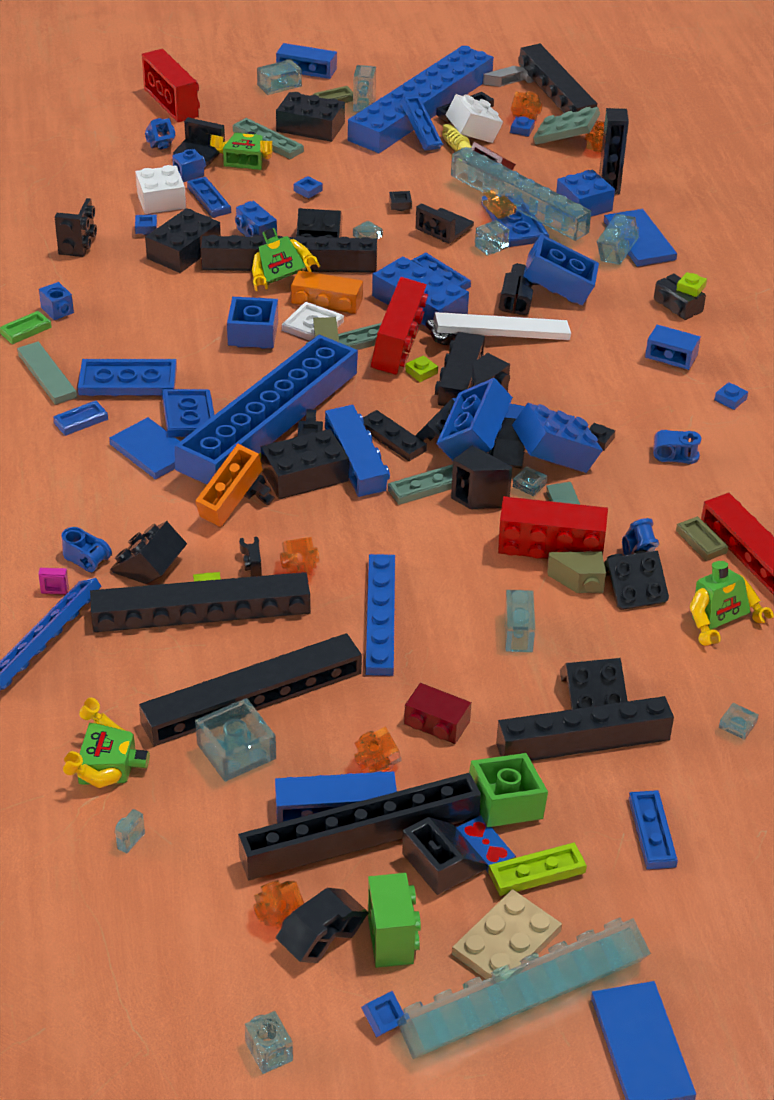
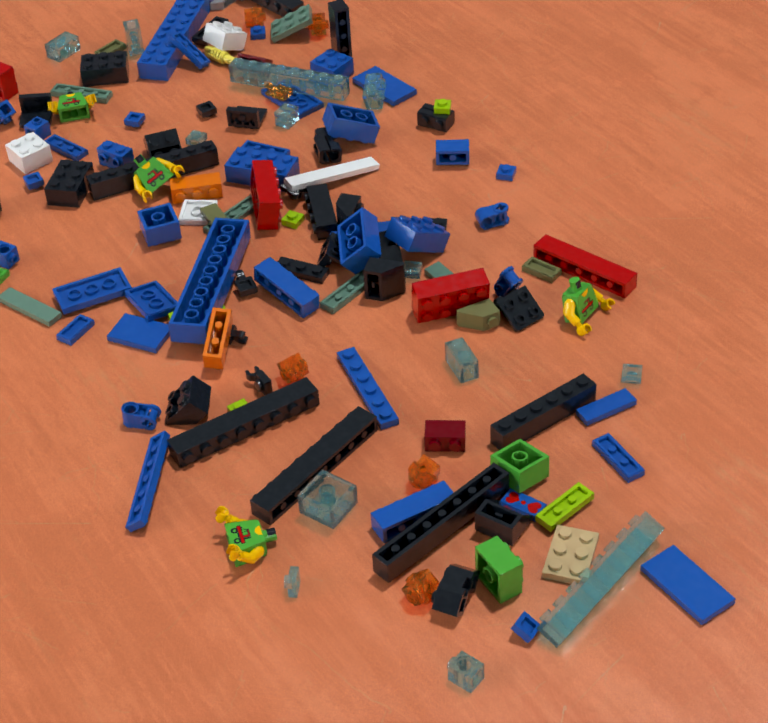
camera: 20 degrees left, 0 degrees up
(53, 580) = (133, 443): dark pink tile -> none
(304, 463) = (258, 307): black brick -> none
(311, 60) = (82, 27): blue brick -> none
(594, 682) = (532, 382): black bracket -> none
(677, 753) = (606, 407): none -> blue tile

